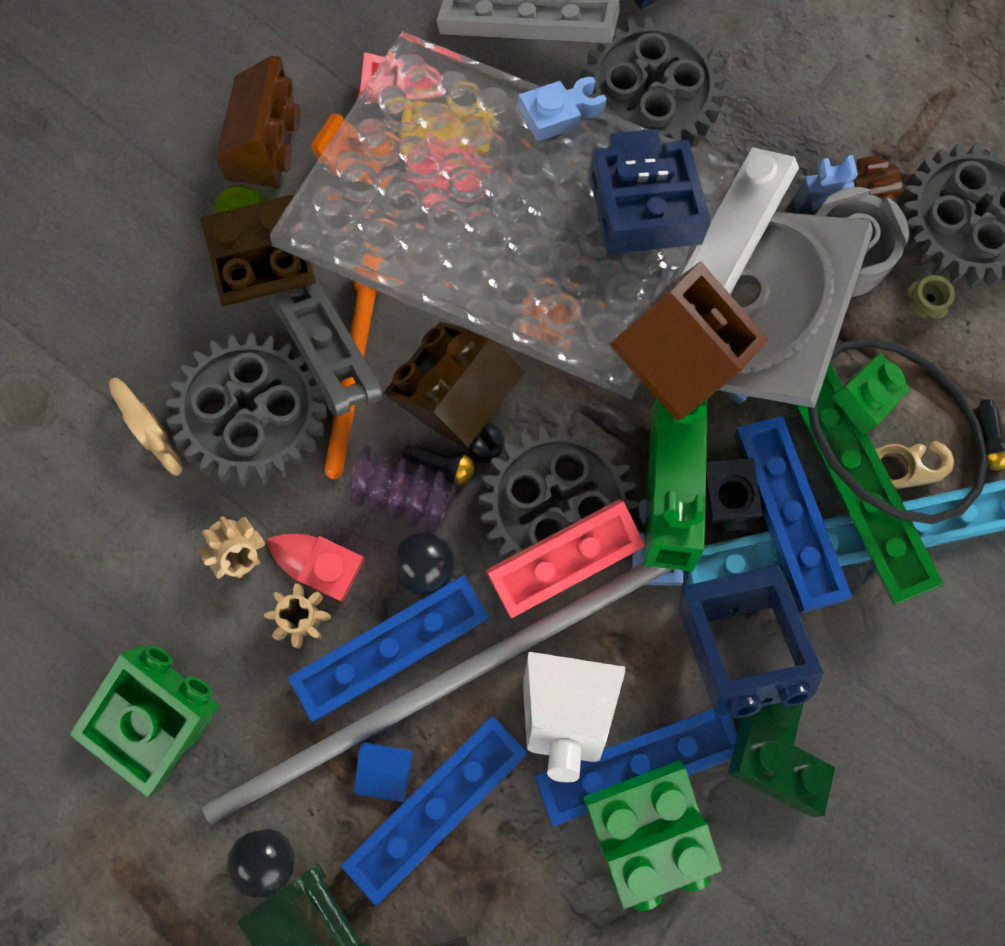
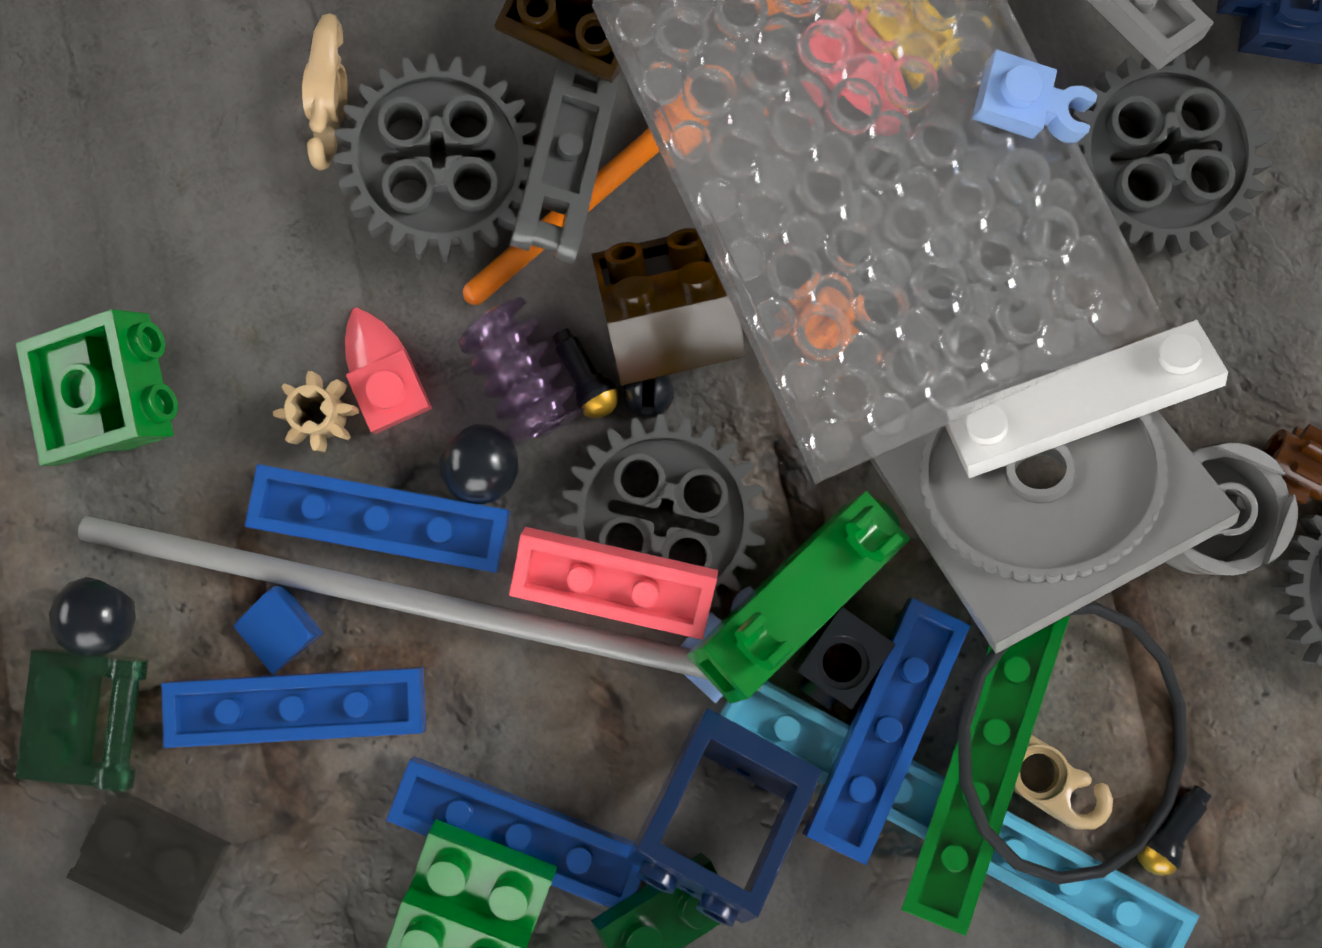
camera: 45 degrees right, 10 degrees up
(231, 547) = (307, 289): tan gear -> none
(569, 710) = (492, 730): white torso -> none
(647, 193) = (1030, 278): dark blue piece -> none
(689, 341) = (920, 479): reddish brown slope -> none
(819, 187) = (1245, 424): light blue plate -> none
(872, 393) = (1083, 683): green plate -> none
(936, 287) = (1265, 638): olive plate -> none

